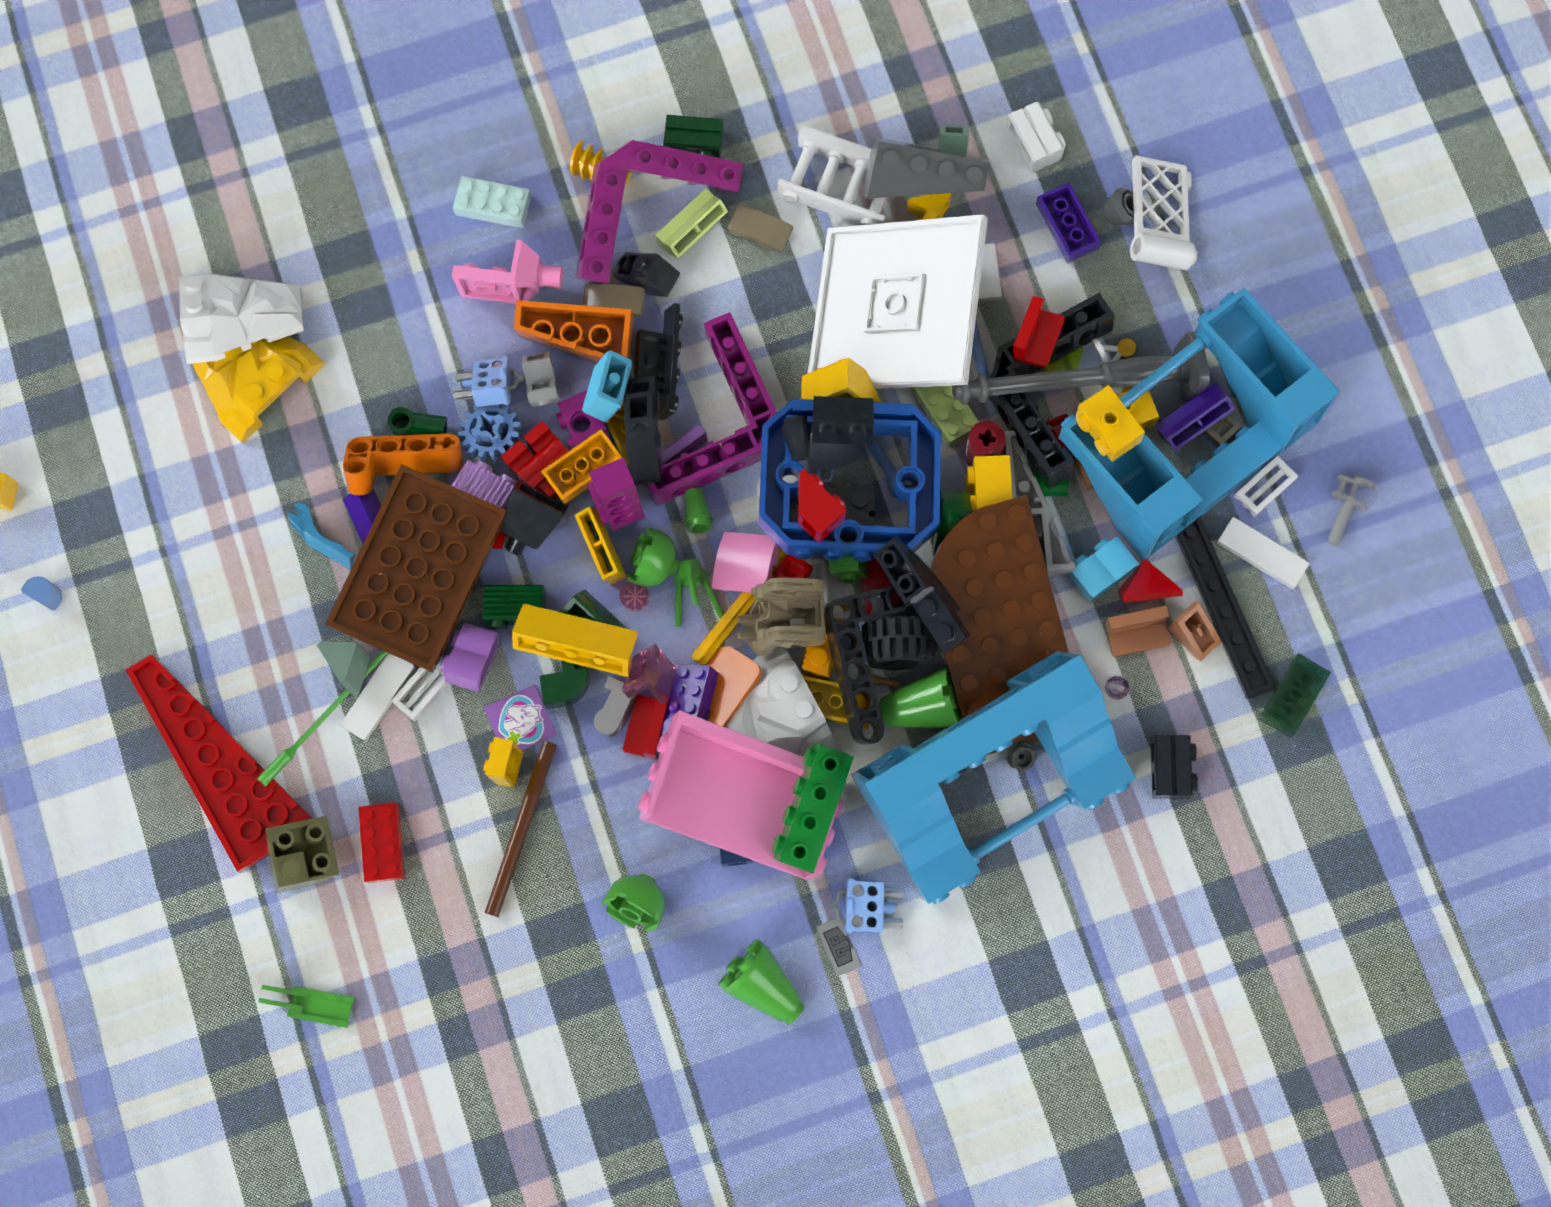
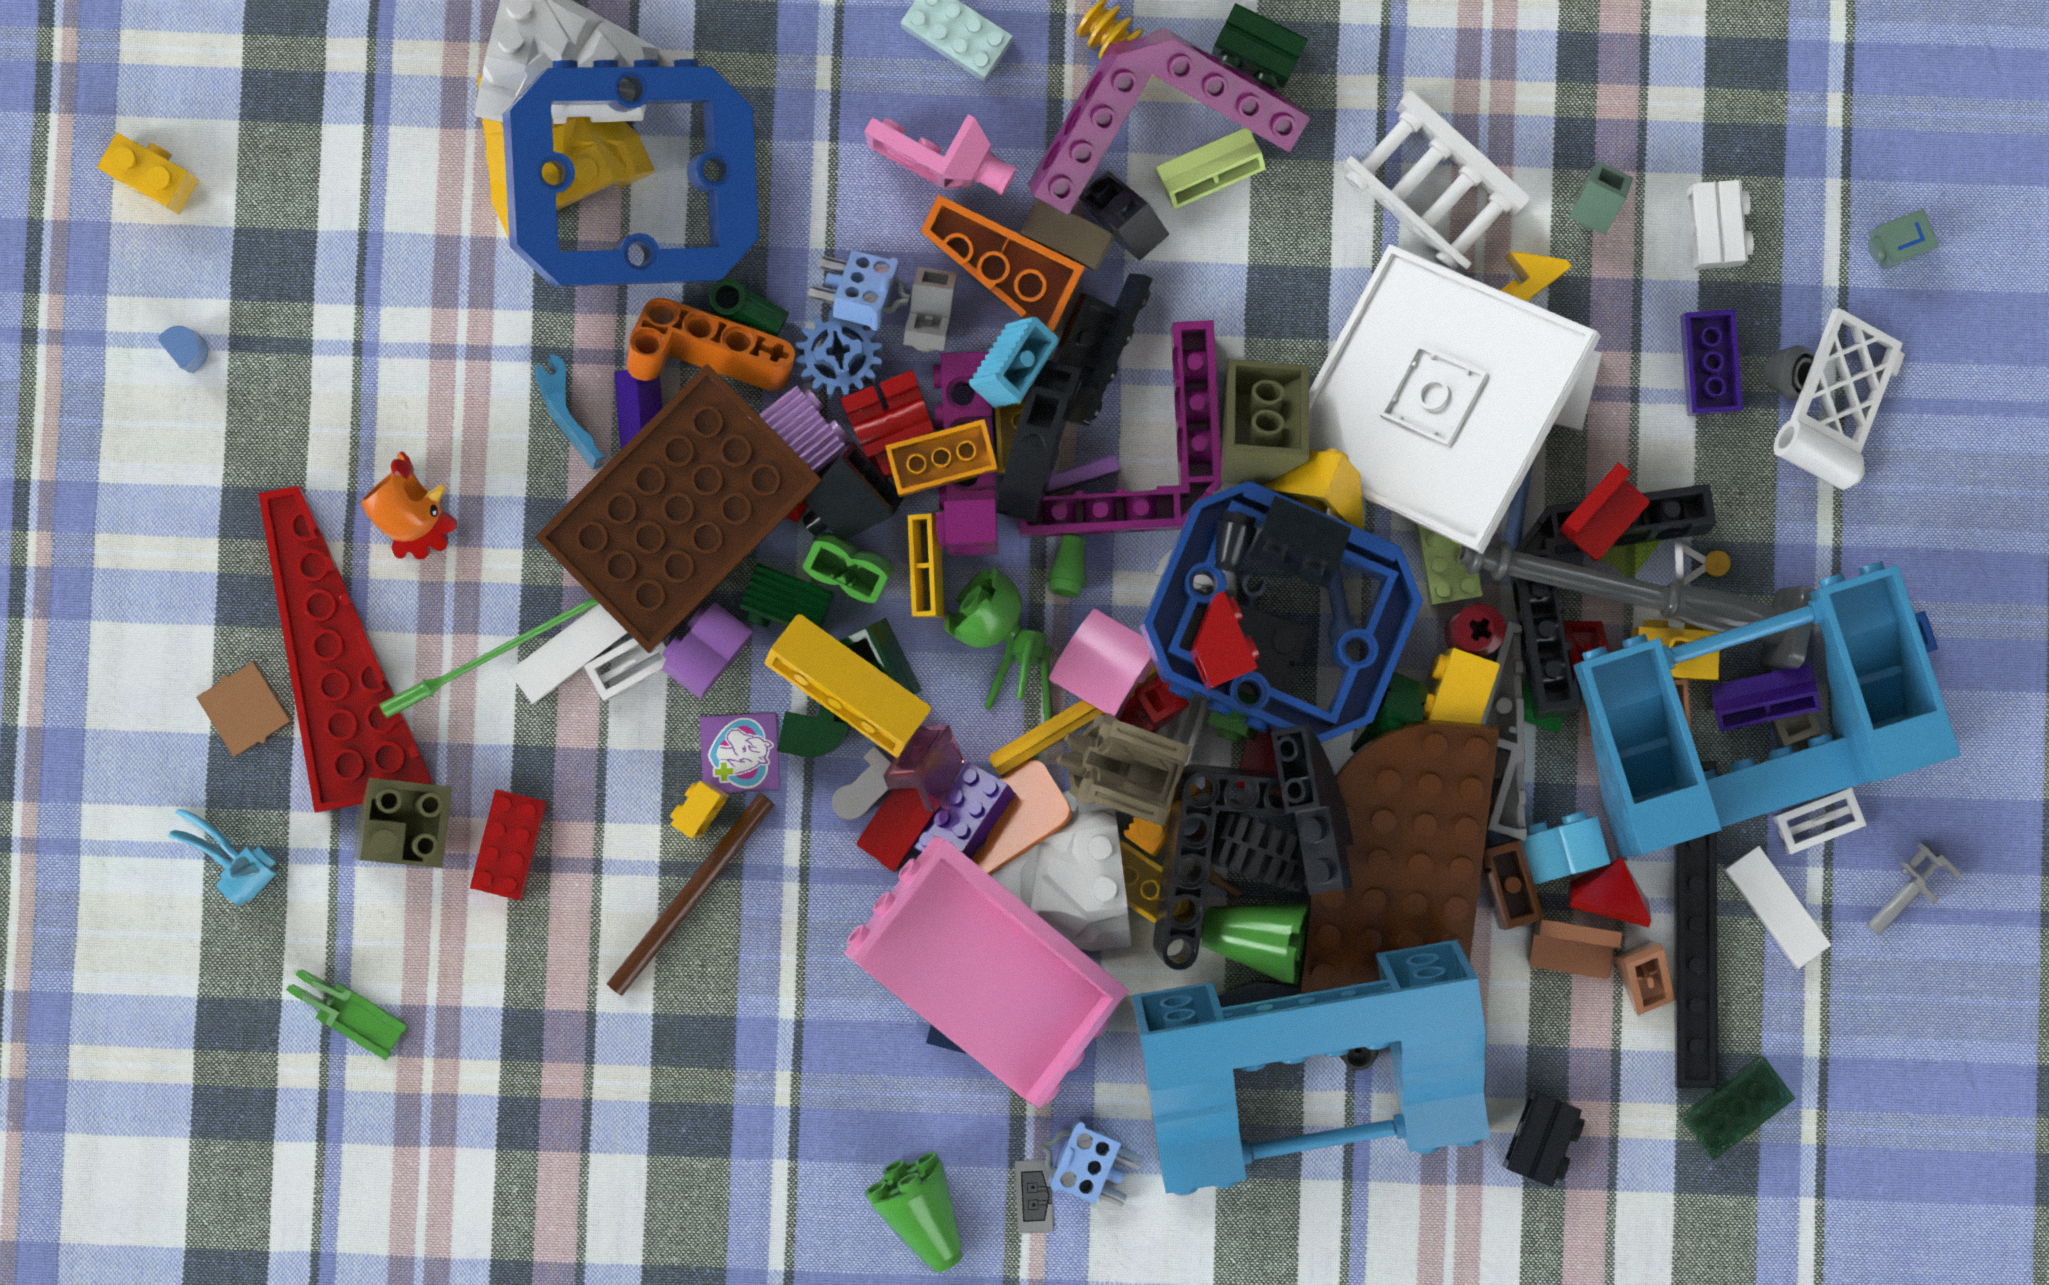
camera: 15 degrees right, 10 degrees up
(165, 822) = (243, 709): none -> medium nougat piece
(201, 929) = (245, 874): none -> medium azure plant
(233, 642) = (409, 511): none -> orange piece
(303, 299) = (727, 144): none -> blue panel
(347, 662) = (545, 598): sand green slope -> none
(540, 563) = (858, 572): none -> bright green brick
(634, 596) = (944, 649): clear pink tile -> none
(635, 900) = (803, 1045): bright green cylinder -> none
(761, 227) = (1300, 209): dark tan slope -> none
(788, 361) = (1264, 420): none -> olive slope
(812, 807) = (1067, 1020): green brick -> none
(919, 170) = (1542, 222): dark grey wedge -> none
(1078, 603) = (1510, 885): none -> reddish brown brick
(1109, 424) = (1641, 685): yellow brick -> none
(1113, 693) = (1510, 1015): clear purple hinge -> none
(1158, 101) = (1902, 239): none -> sand green brick

